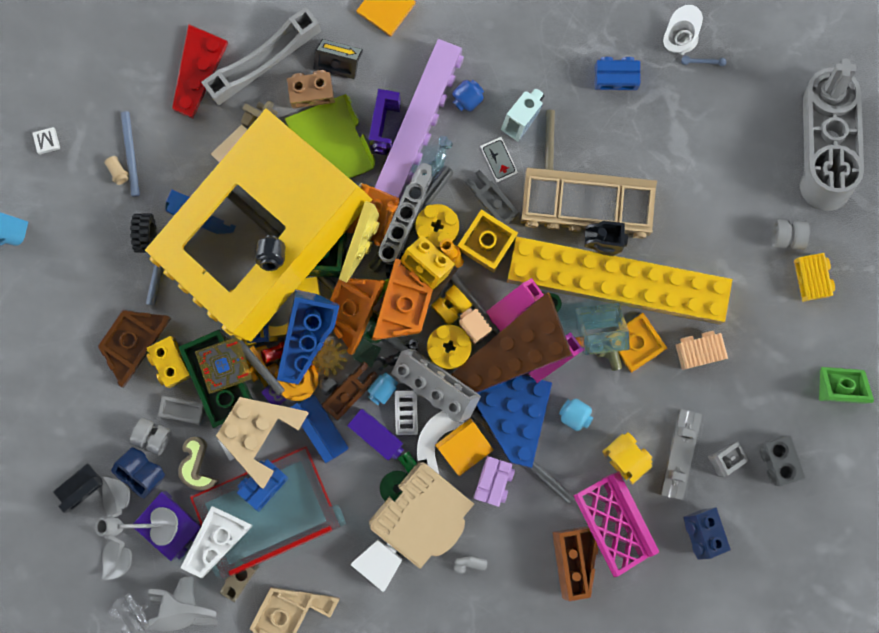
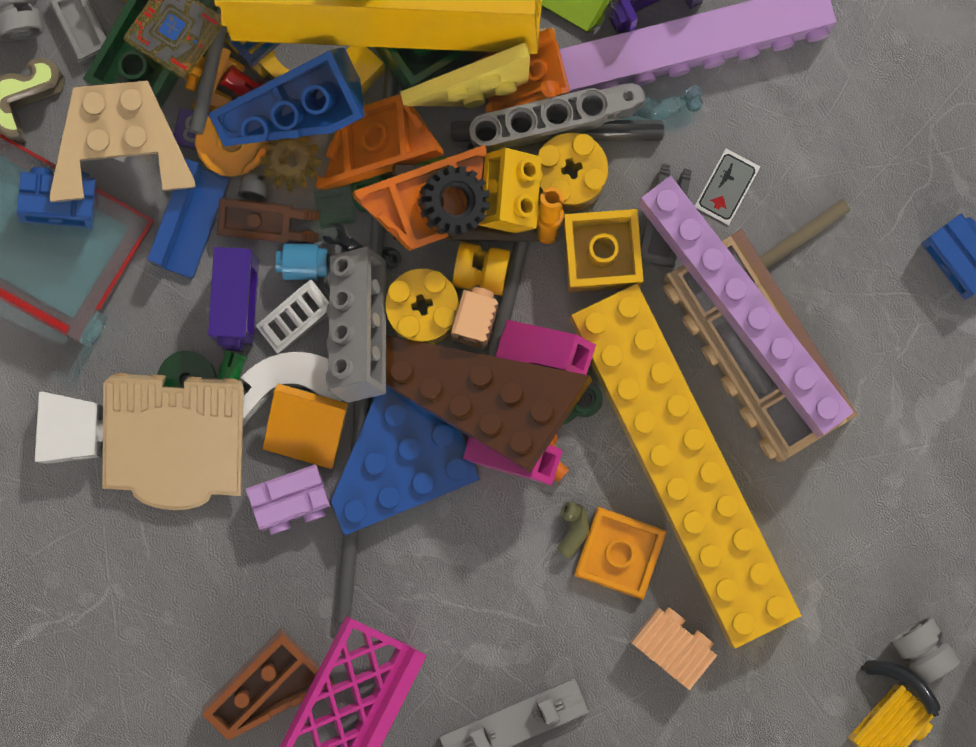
camera: 50 degrees right, 0 degrees up
(413, 280) = (474, 193): none -> black tyre
(468, 95) = (779, 80): blue head -> none
(472, 562) = (160, 547): light grey arm -> none
(522, 114) = (811, 170): light aqua torso -> none
(568, 194) = (744, 307): none -> lavender brick
(576, 414) = (460, 543): medium azure head -> none
(606, 237) = (726, 403): black hand -> none
(610, 317) = (624, 489): clear light blue window -> none
(628, 458) = (452, 653): yellow brick -> none
(804, 250) = (908, 678): none -> black piece

